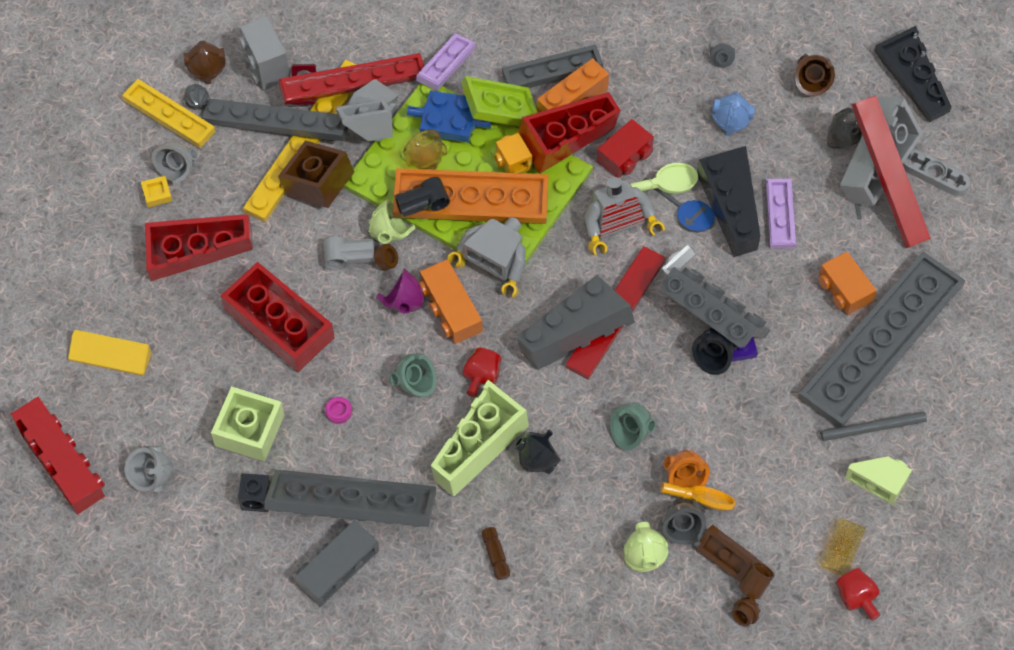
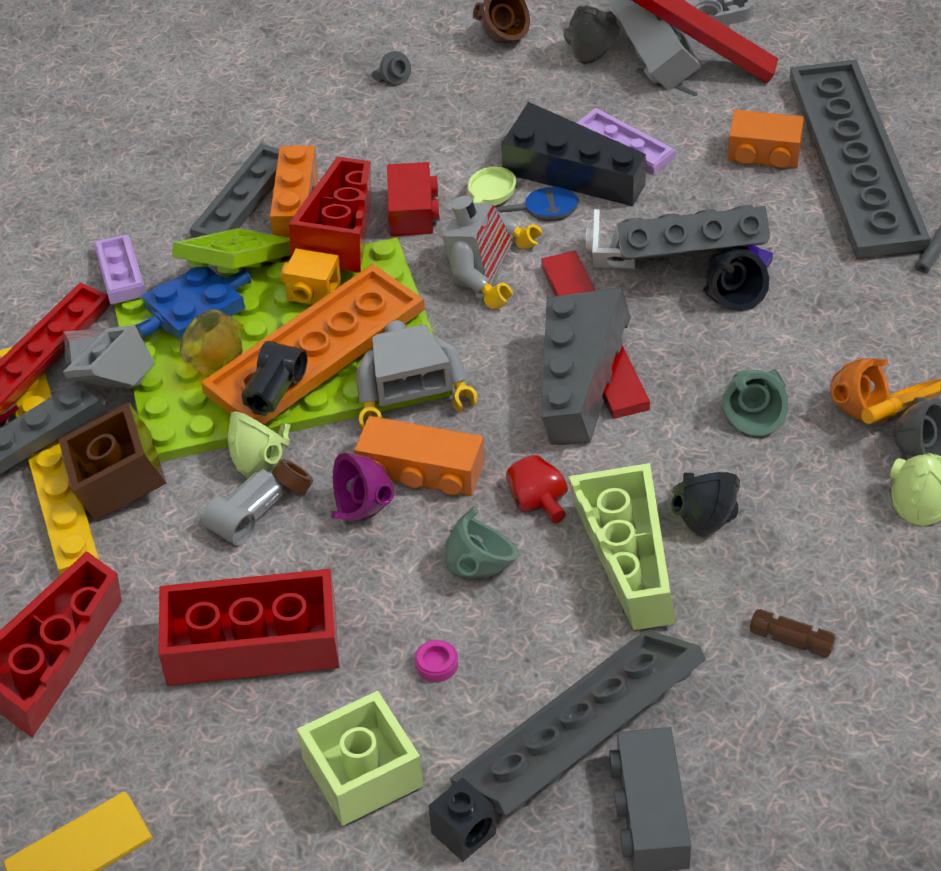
camera: 45 degrees left, 15 degrees down
(732, 113) = (471, 95): medium blue helmet -> none

